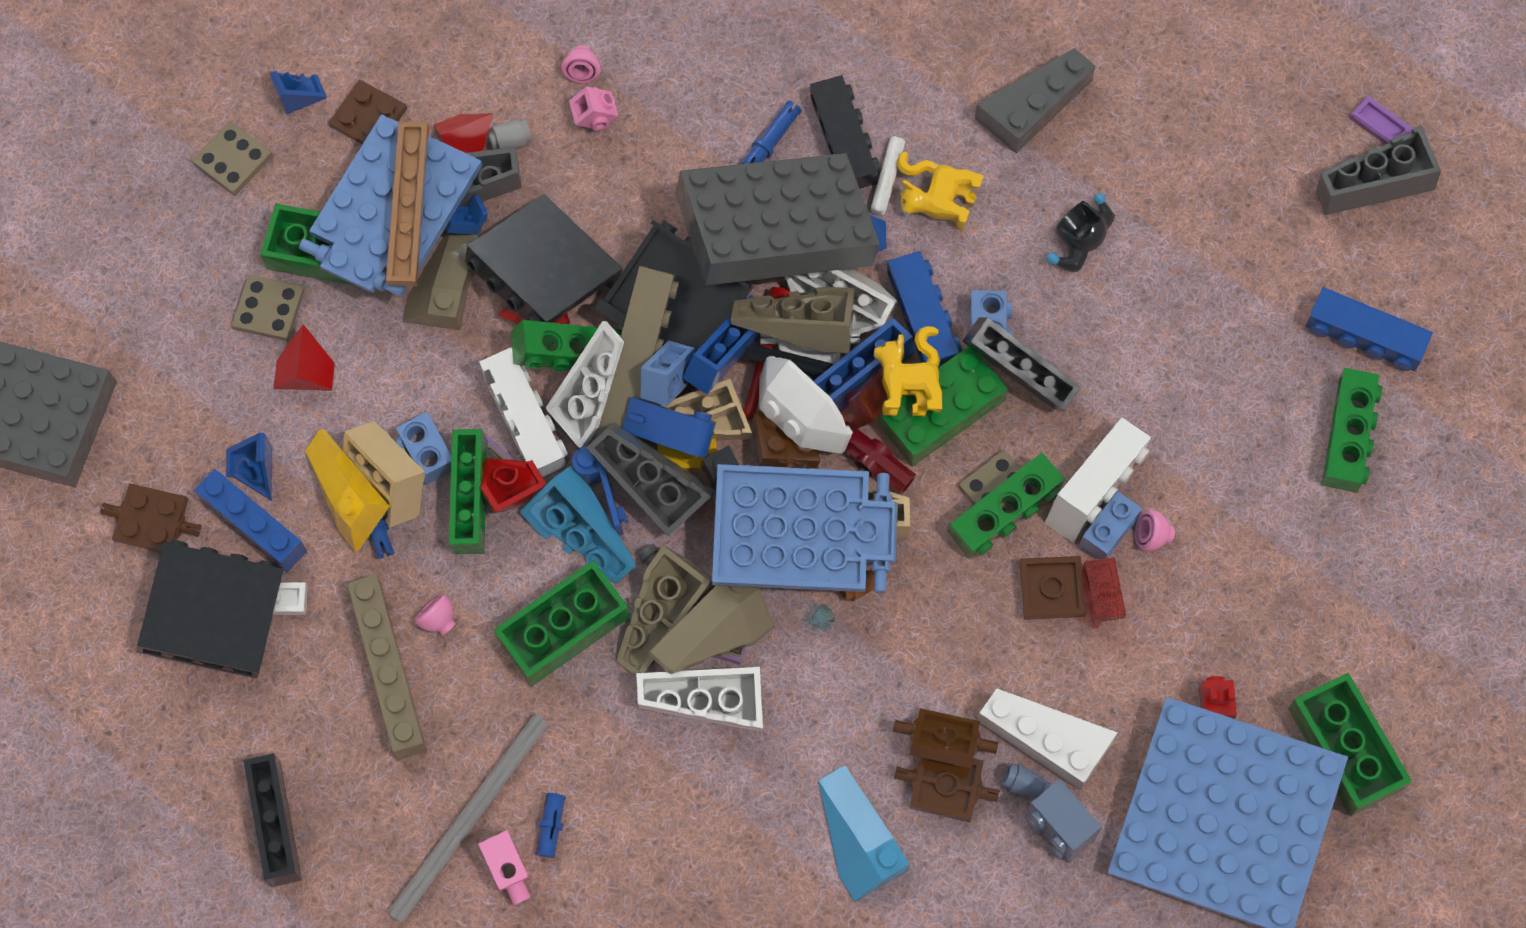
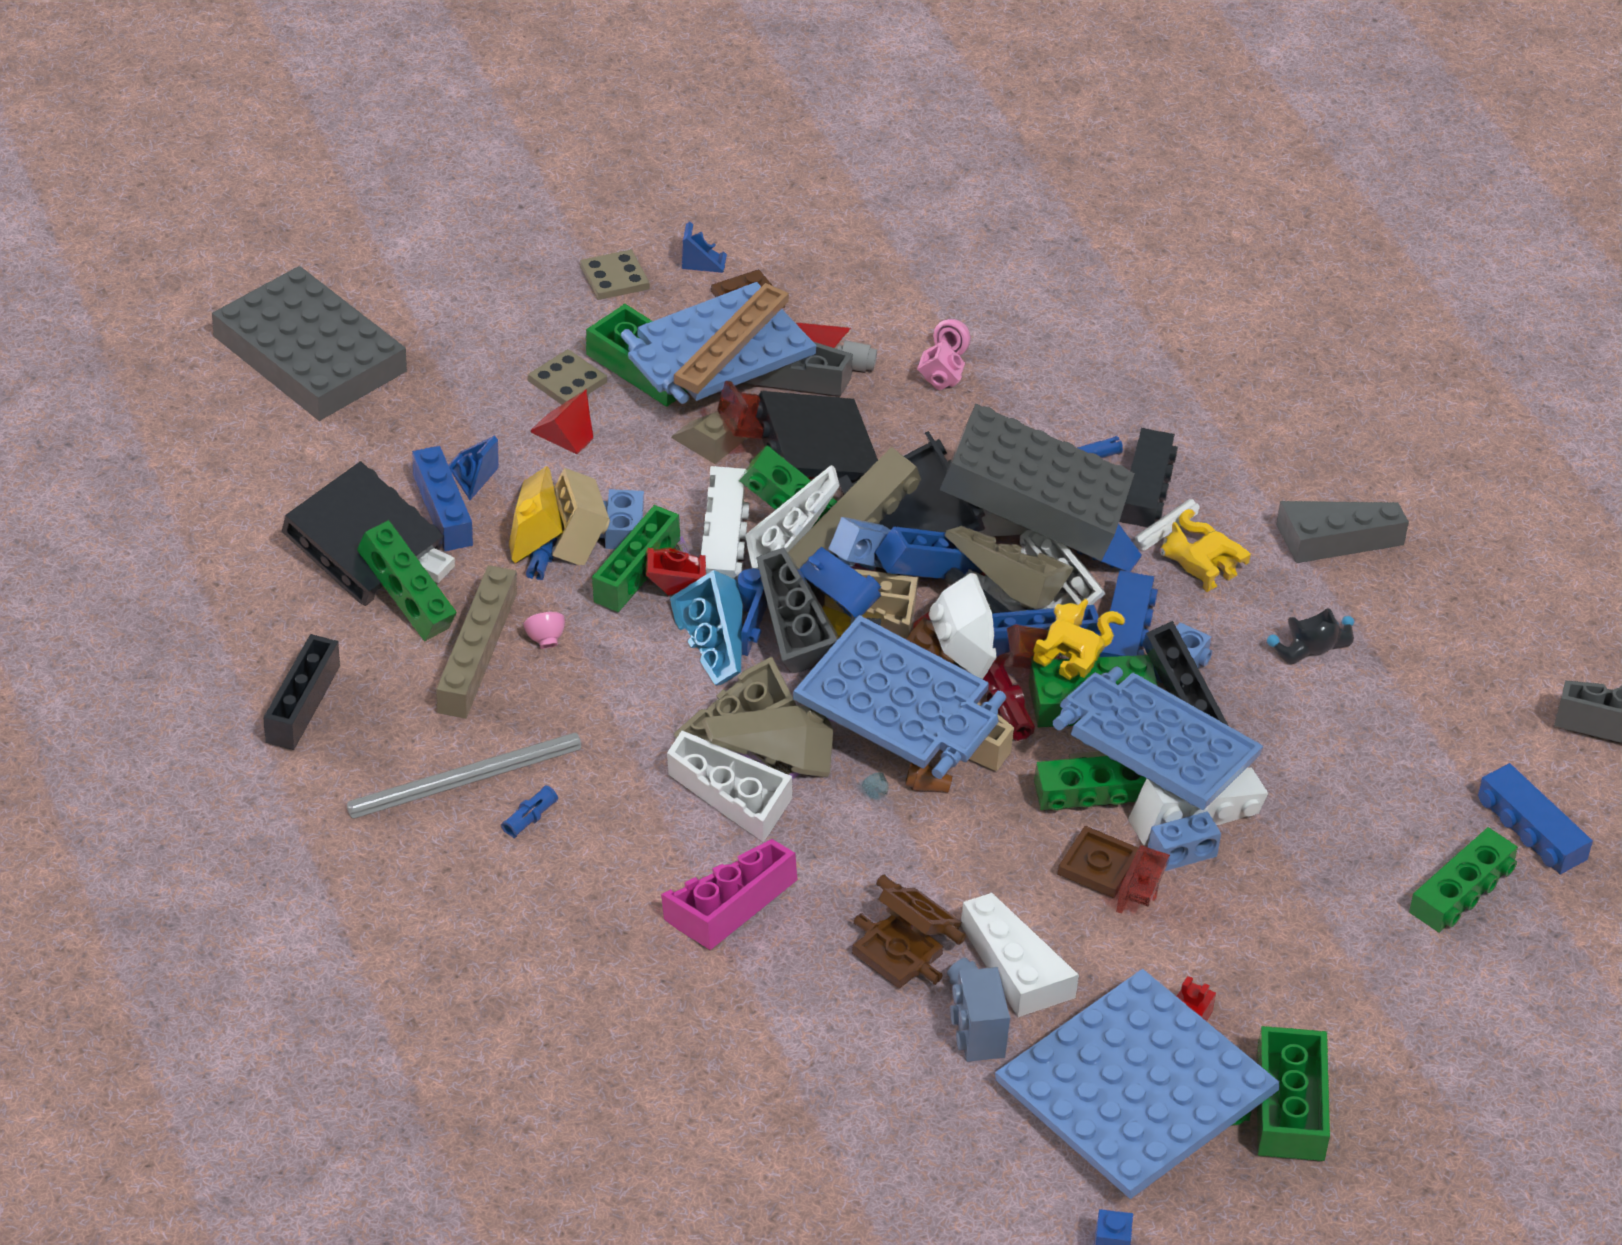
camera: 25 degrees right, 25 degrees down
(150, 518) = (366, 450): reddish brown plate -> none
(288, 645) = (406, 580): none -> green brick
(462, 279) = (739, 412): none -> clear red panel
(468, 219) = (768, 382): blue bracket -> none
(501, 852) = (468, 817): bright pink torso -> none
(562, 623) = (646, 679): green brick -> none
(777, 824) = (730, 895): none -> dark pink wedge
(860, 840) = (791, 951): dark azure wedge -> none
(1039, 444) = (1157, 735): none -> medium blue plate
(1153, 531) = (1224, 864): bright pink brick -> none

